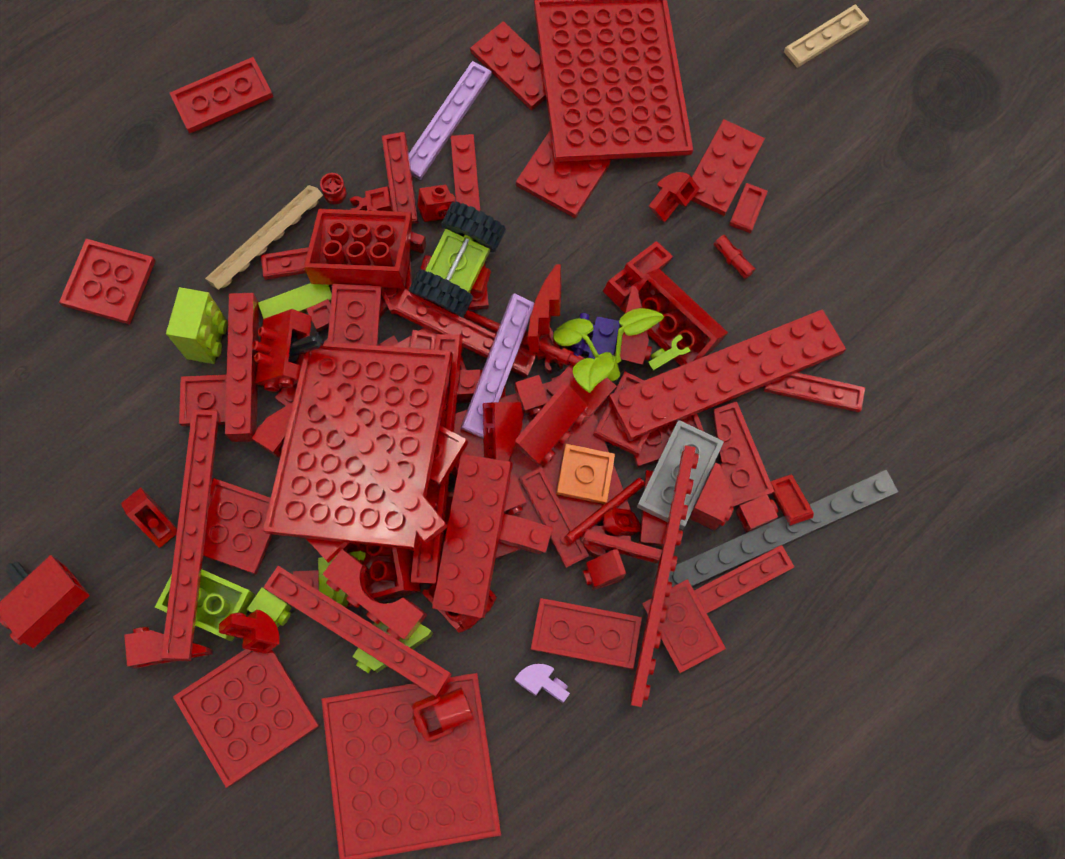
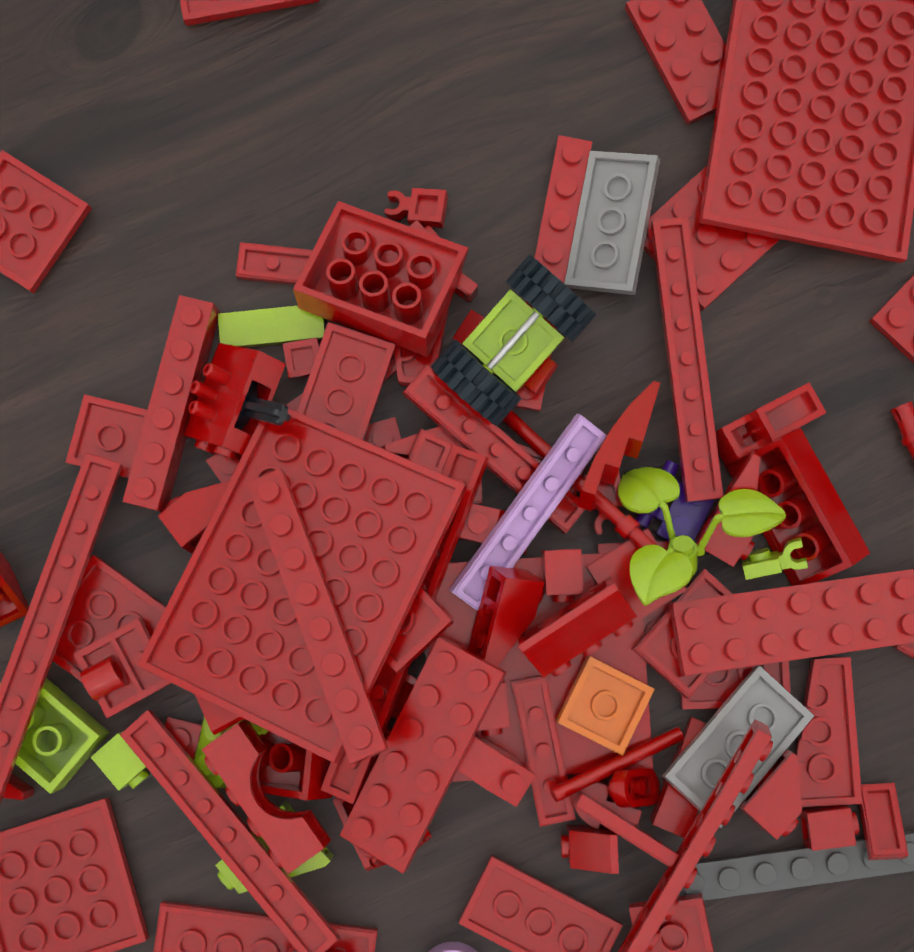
camera: 20 degrees right, 10 degrees up
(197, 326) = (121, 333): lime brick -> none
(251, 546) = (112, 669): none -> red plate
(257, 630) = (94, 792): red brick -> none
(263, 237) = (252, 216): tan plate -> none
(329, 184) = (365, 164): red wheel -> none
(399, 174) = (468, 178): red tile -> none
(434, 202) = (508, 236): red brick -> none
(447, 118) = (560, 106): lavender tile -> none
(501, 176) = (612, 222): none -> light grey plate
(573, 246) = (686, 360): none -> red plate
(675, 190) = (860, 314): red brick -> none
(744, 579) = (780, 912): red plate -> none

